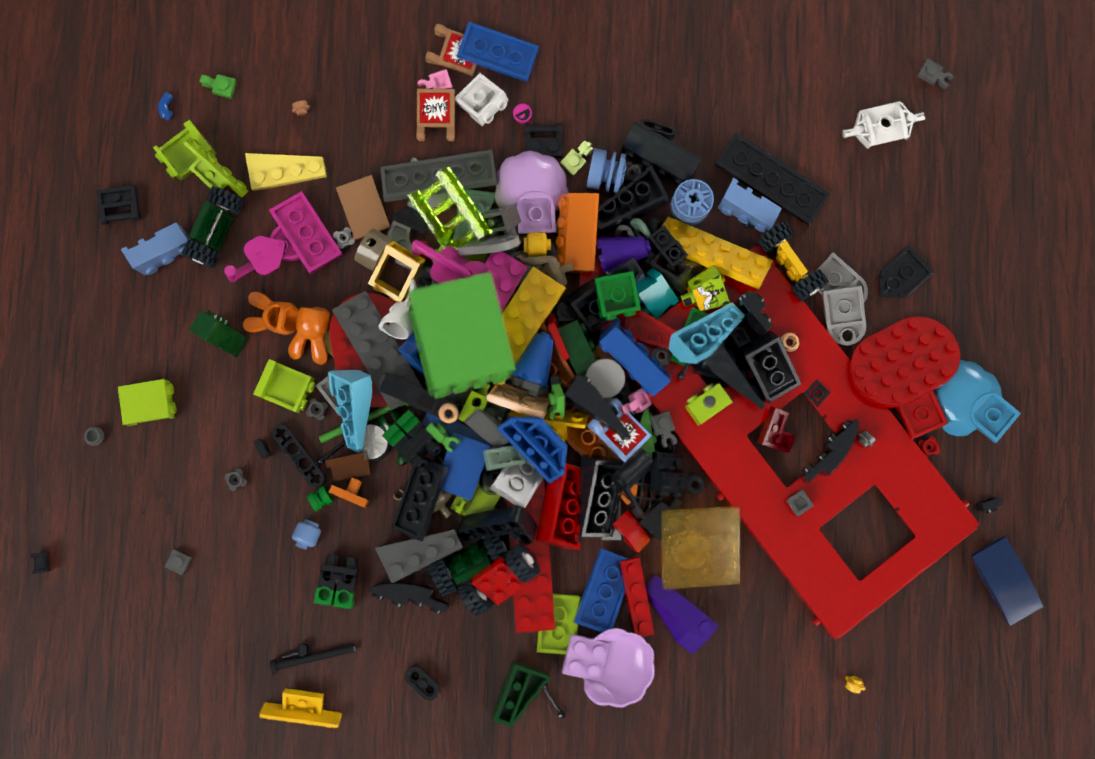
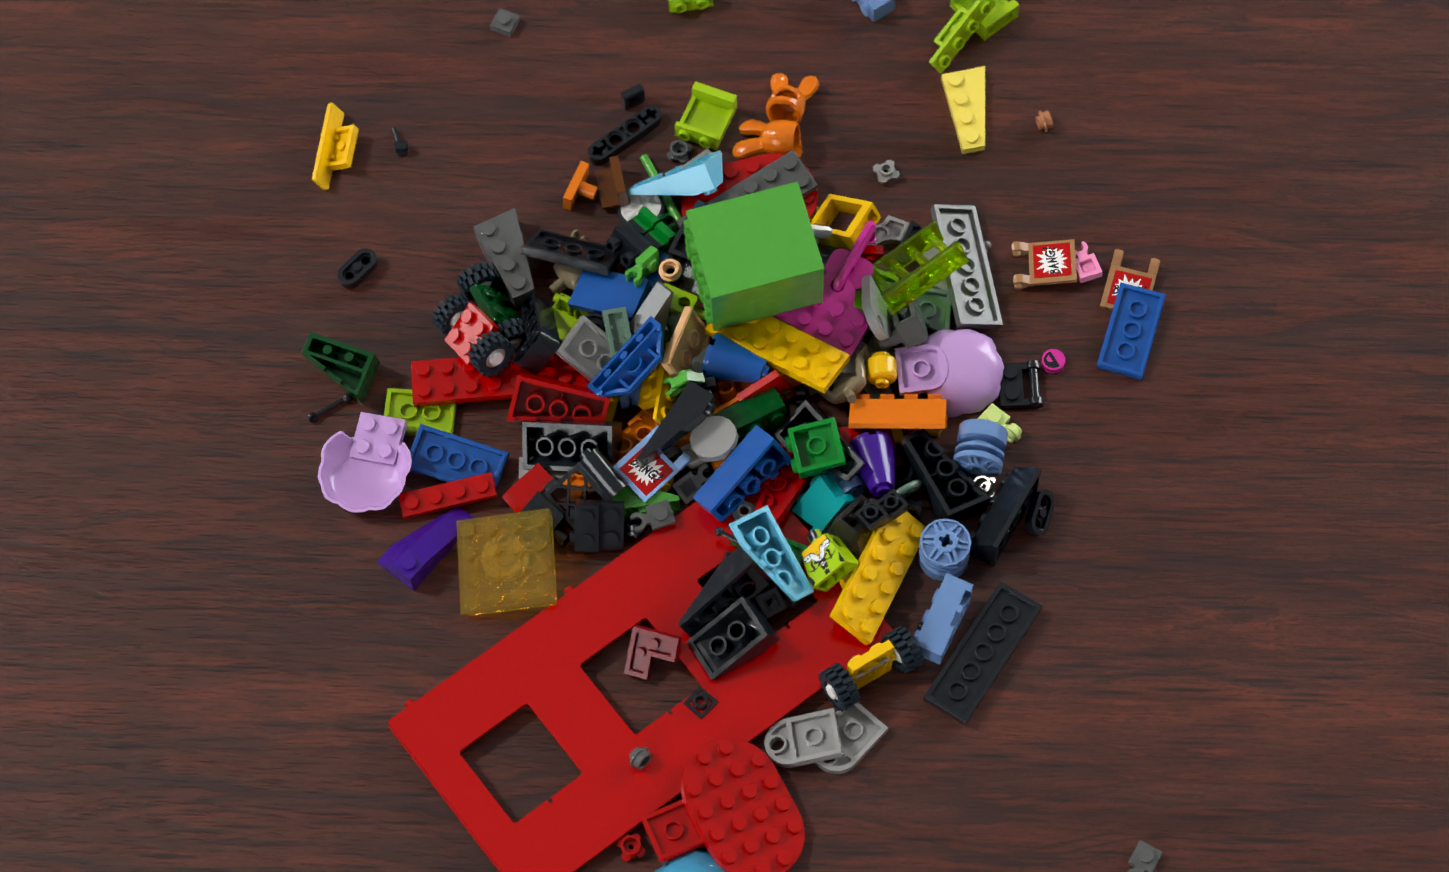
camera: 95 degrees right, 20 degrees down
(212, 226) = (891, 32): plate -> none
(218, 333) = (767, 42): dark green wedge -> none
(221, 86) = (1067, 39): bright green plate -> none
(229, 477) = (597, 67): dark grey plate -> none
(275, 666) = (384, 119): black bar -> none
(300, 231) = (881, 128): dark pink plate -> none
(306, 534) = (533, 144): medium blue head -> none
(319, 498) = (573, 155): green wheel -> none
(321, 460) = (626, 166): black hinge -> none
(335, 576) = (476, 177): black hips -> none
(363, 207) = (918, 191): medium nougat tile -> none
(371, 248) = (862, 190): dark tan piece -> none
(401, 592) = (461, 251): black slope -> none
(482, 99) = (1066, 312): white plate -> none
(638, 401) = (687, 485): bright pink plate -> none
(701, 484) = (582, 557): black plate -> none
(707, 404) = (684, 565): lime piece -> none
(751, 305) = (802, 611): black plate -> none
(795, 342) = (765, 659): light nougat plate -> none
(799, 502) = (559, 674): dark grey plate -> none
(837, 447) = (627, 720): black slope -> none
(854, 684) = (330, 748): yellow plate -> none
(872, 132) = (1066, 814): white plate -> none
(903, 274) = (861, 818): black tile -> none

